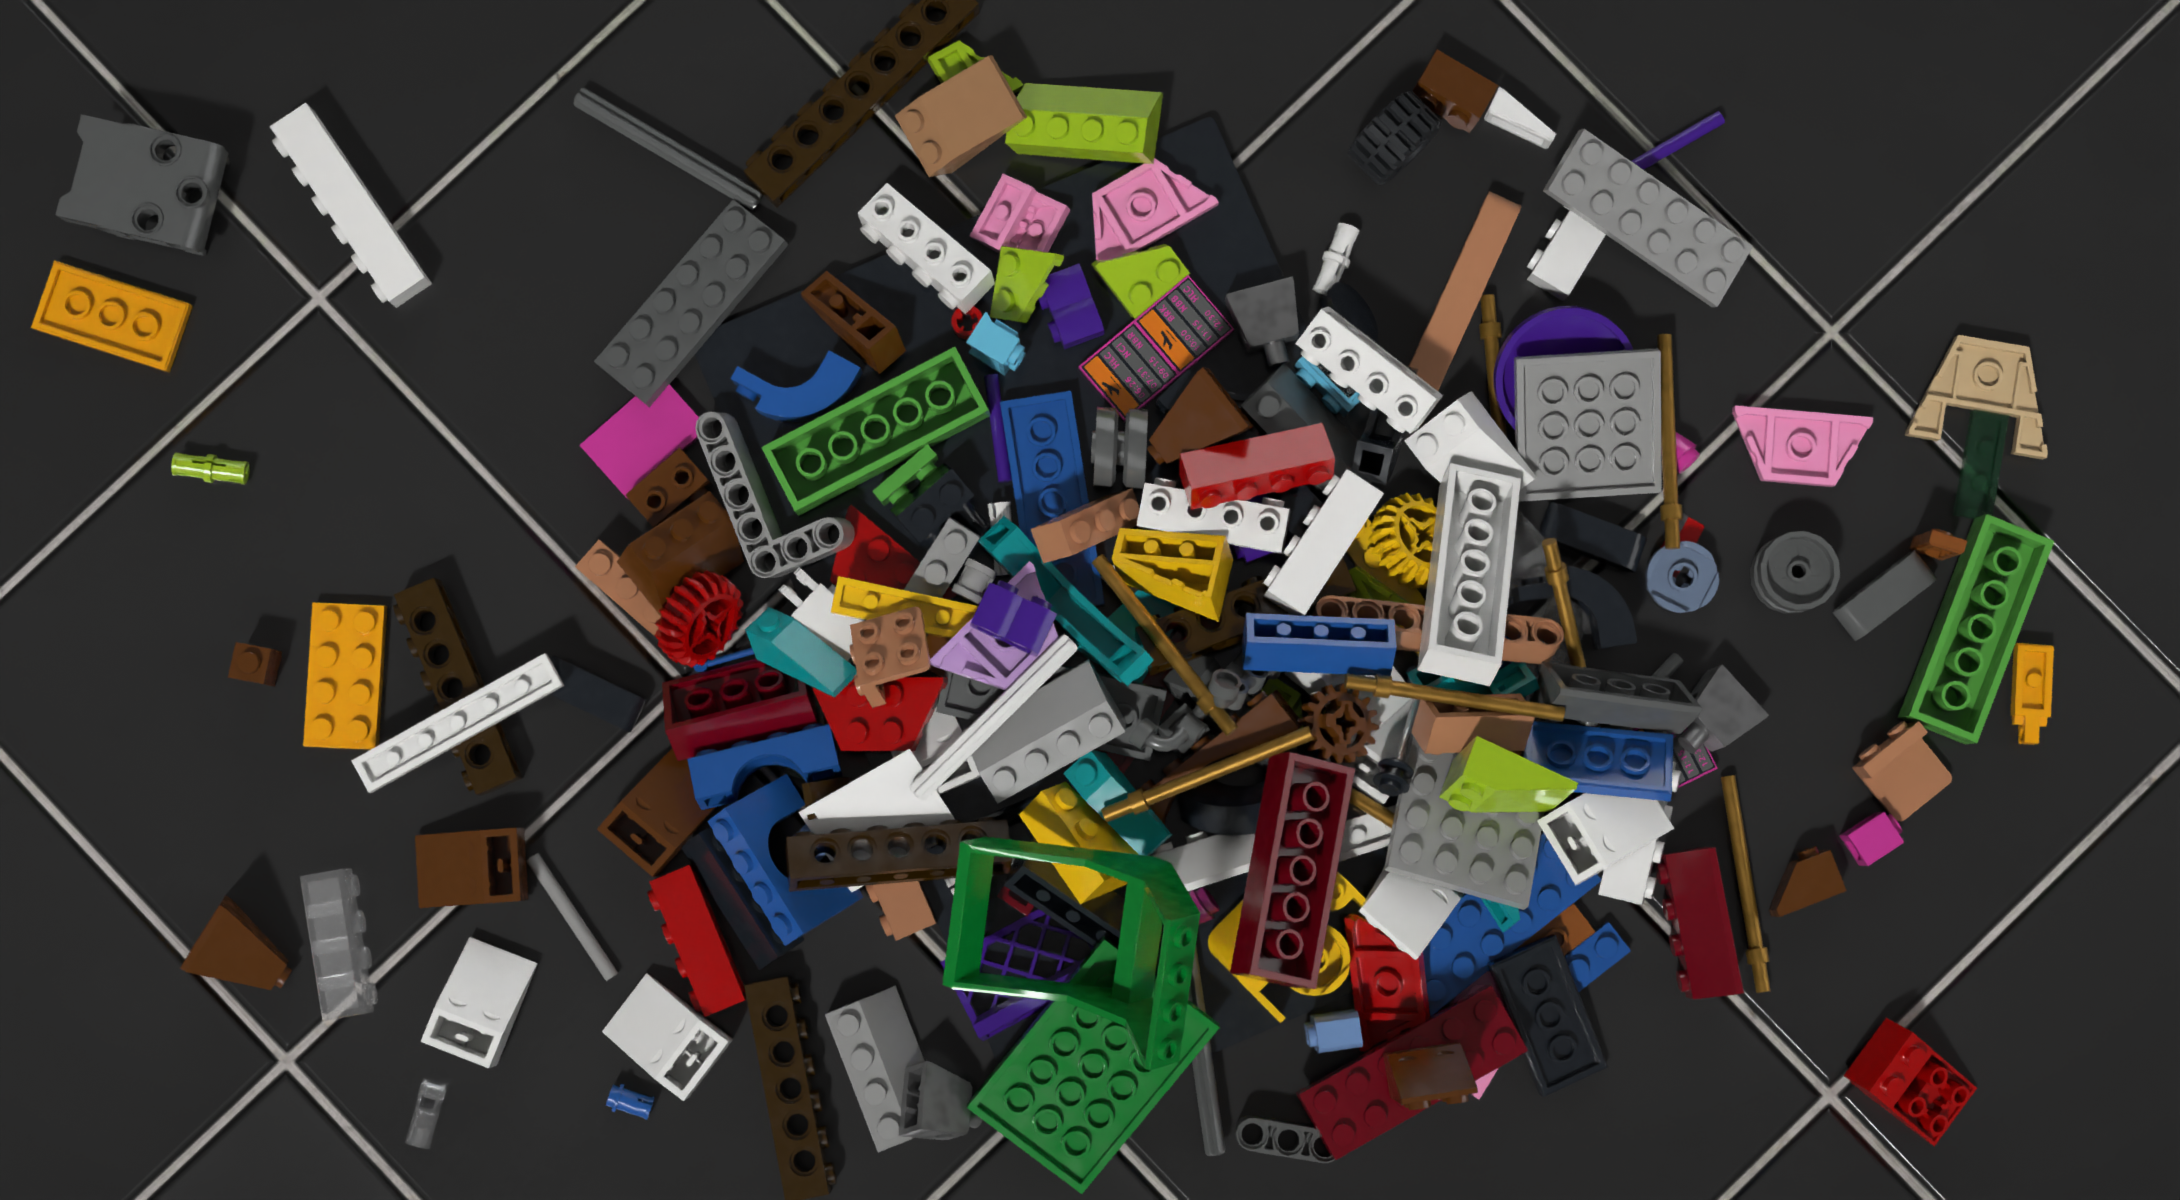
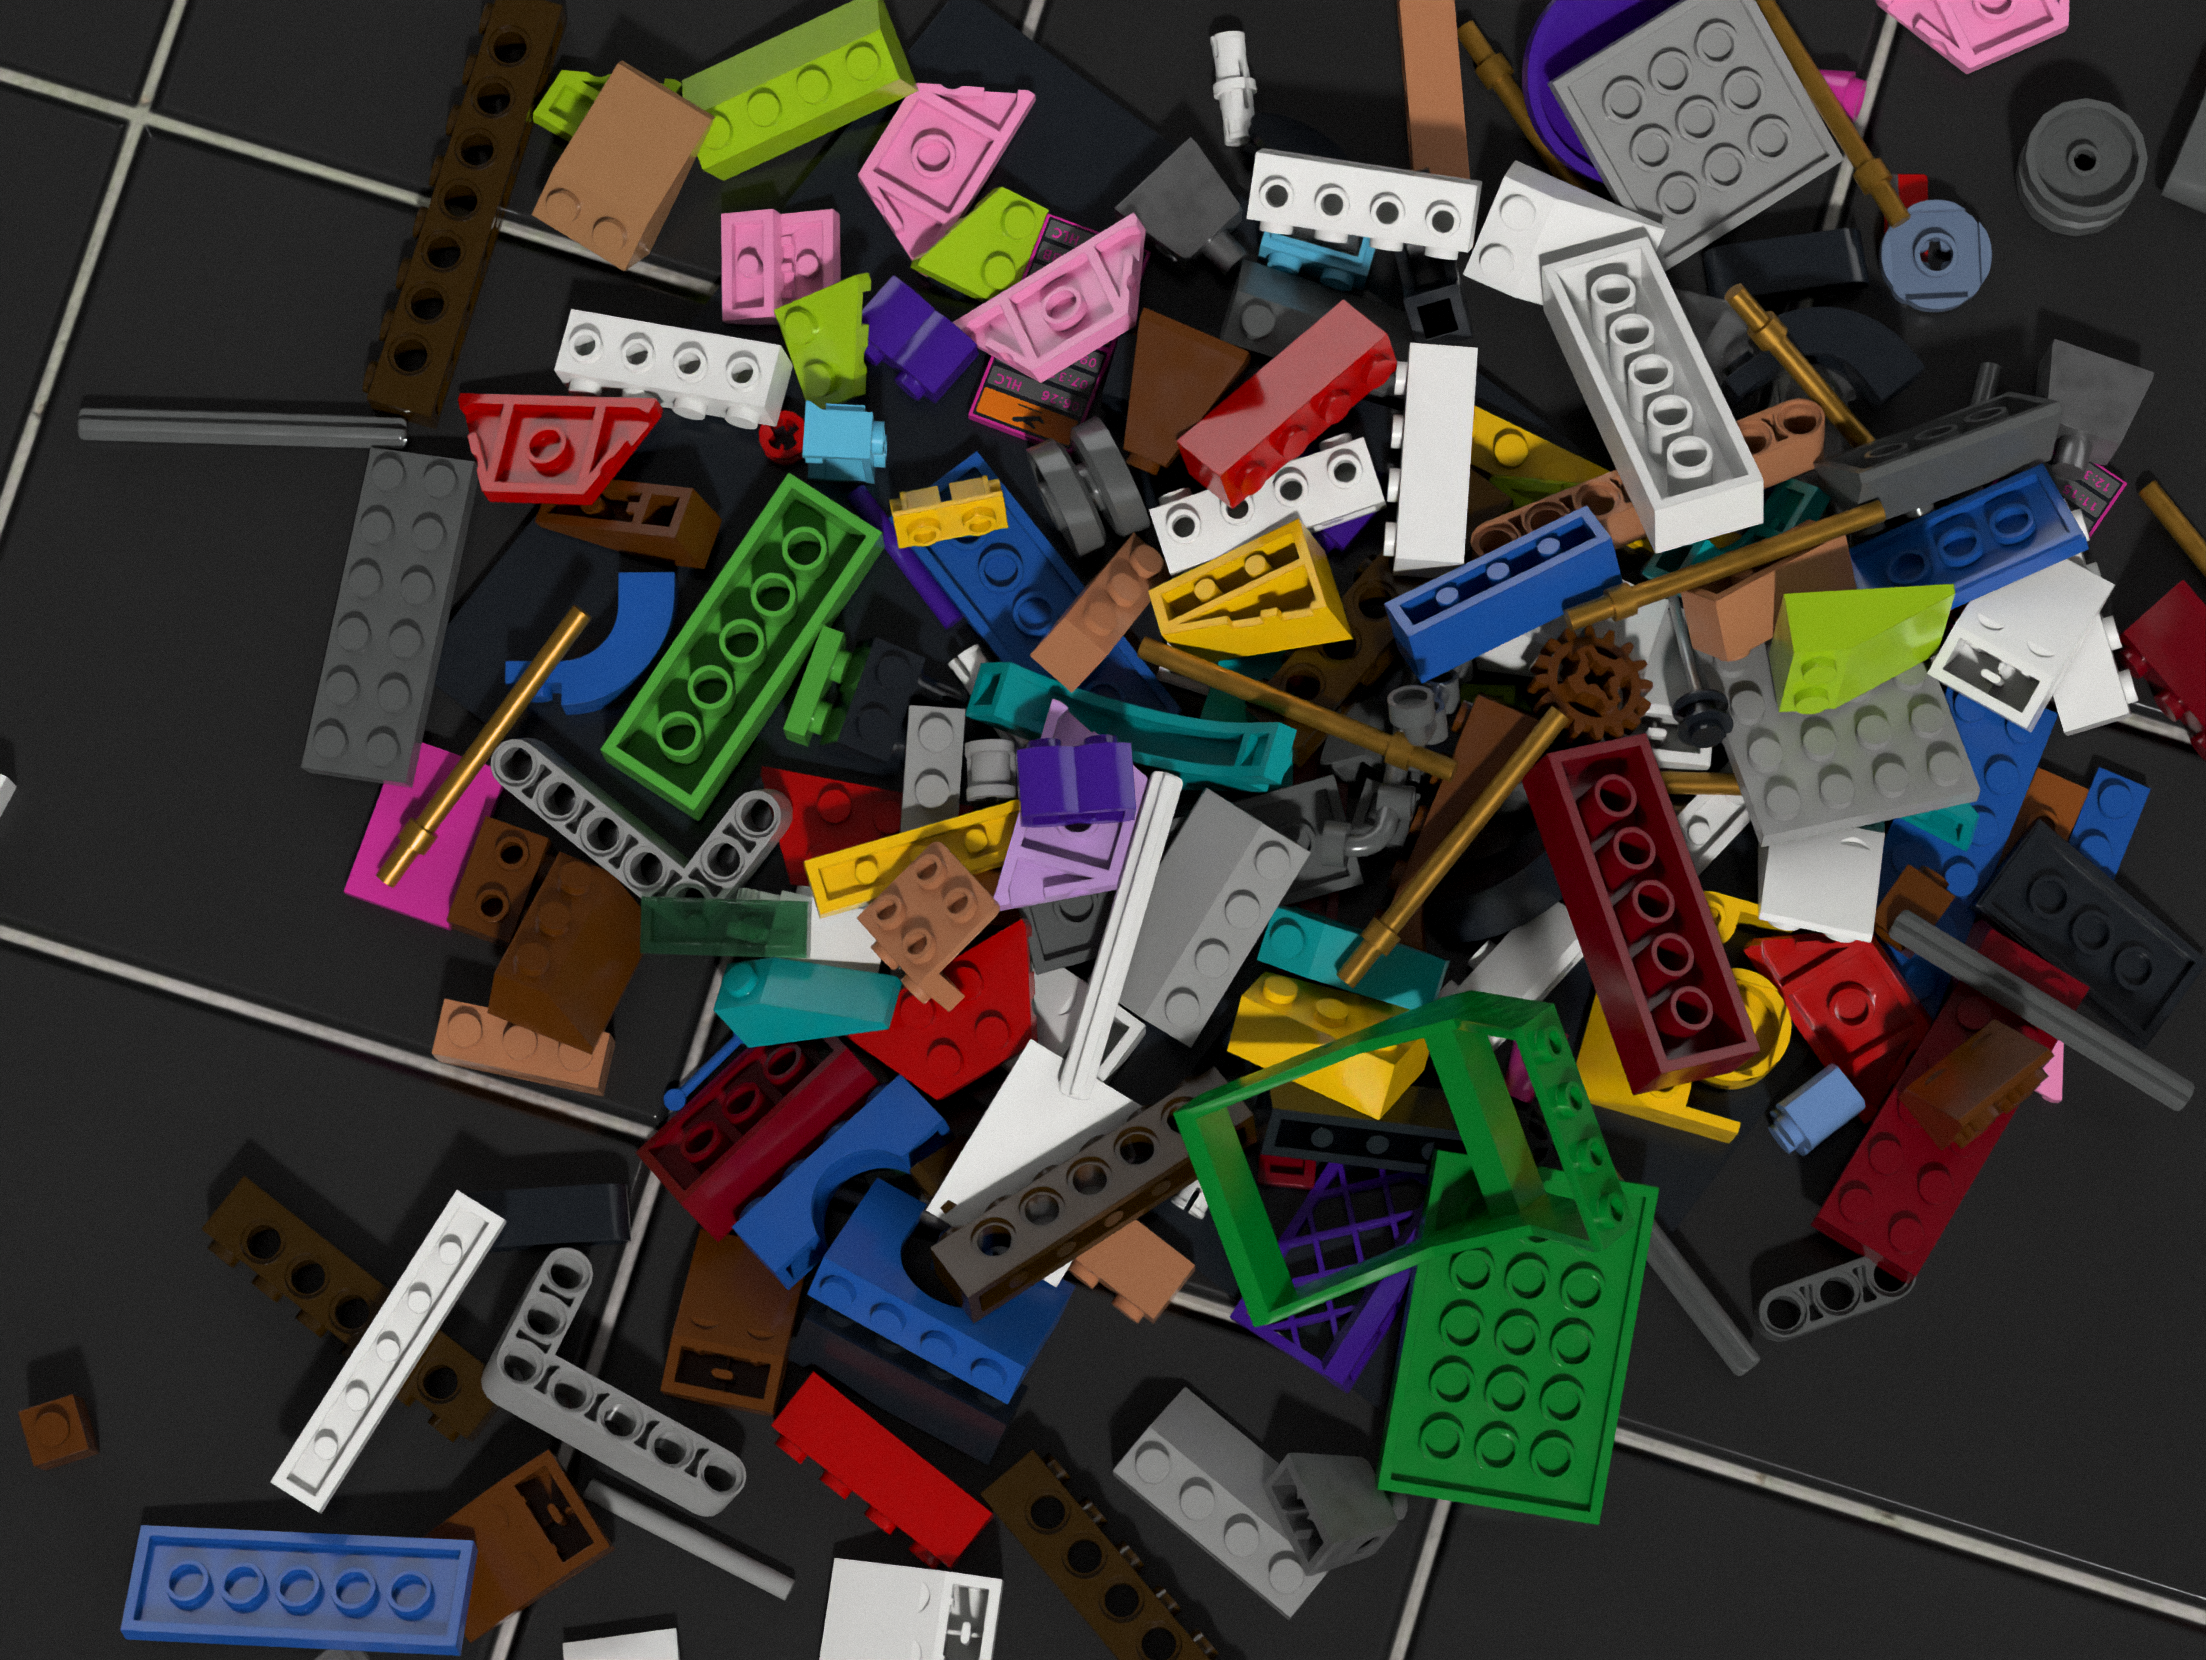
camera: 25 degrees left, 5 degrees down
(338, 828) = (300, 1590): none -> blue plate
(345, 676) = (191, 1383): light orange plate -> none
(558, 813) = (598, 1401): none -> light grey beam
(638, 436) = (419, 833): none -> pearl gold bar
(699, 618) = (642, 1029): red gear -> none
(777, 587) = (726, 927): none -> clear green tile
(833, 255) = (553, 445): none -> red wing
(1018, 414) = (974, 510): none -> yellow hinge
(1166, 335) = (1065, 305): none -> bright pink wing
(1405, 538) = (1538, 403): yellow gear -> none
(1453, 948) = (1915, 890): none -> reddish brown brick
(1492, 1050) = (2041, 1010): none -> dark grey axle

